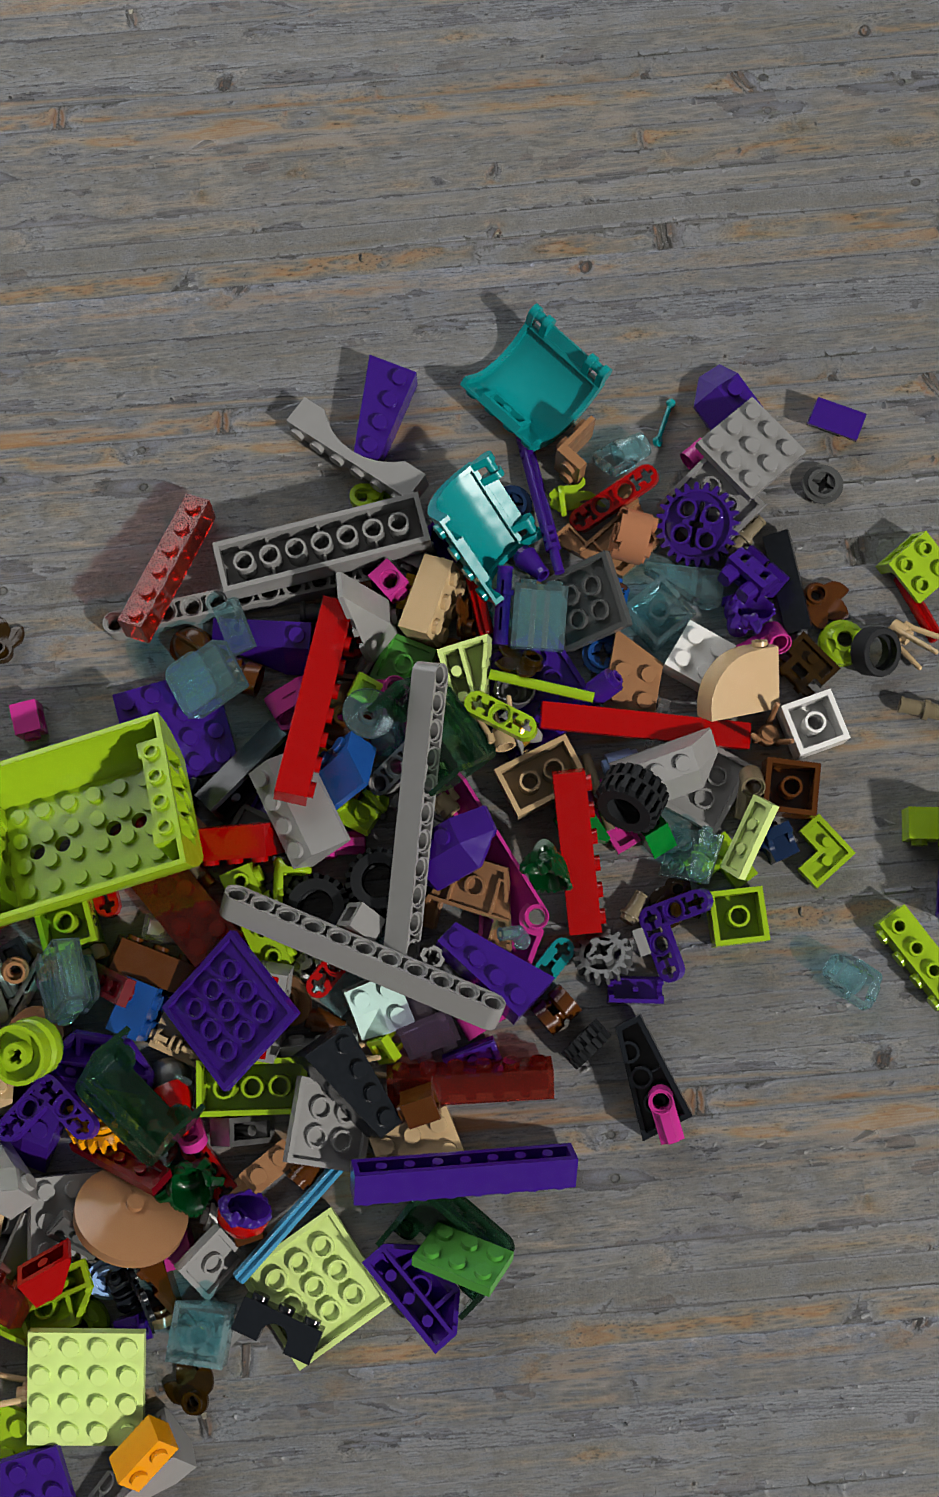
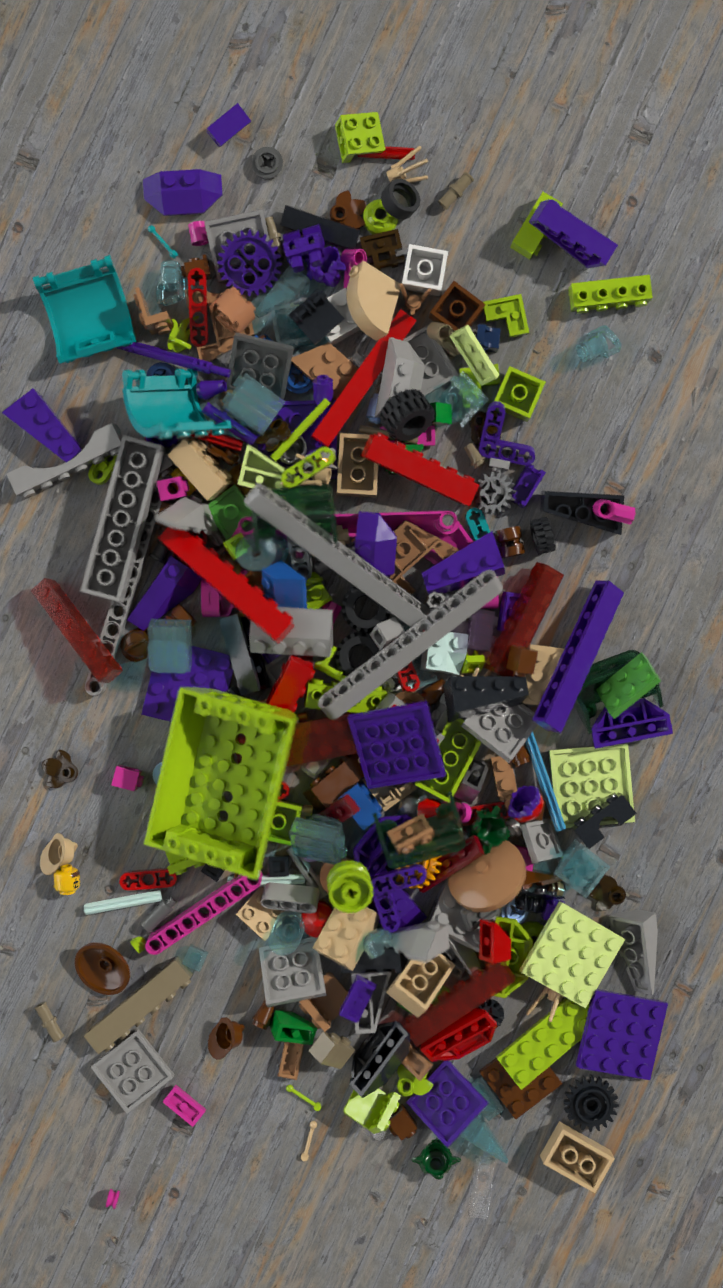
camera: 65 degrees left, 10 degrees up
(15, 978) = (295, 870): medium nougat plate -> none
(128, 1089) = (411, 834): none -> medium nougat bracket
(143, 1453) = (630, 939): light orange brick -> none
(234, 626) = (143, 608): clear light blue plate -> none
(517, 934) = (450, 539): clear light blue arm -> none
(546, 868) = (421, 495): dark green hair -> none
(666, 478) = (196, 263): none -> reddish brown brick
(682, 630) = (316, 316): none -> black hinge
(750, 449) = (219, 196): light grey plate -> none

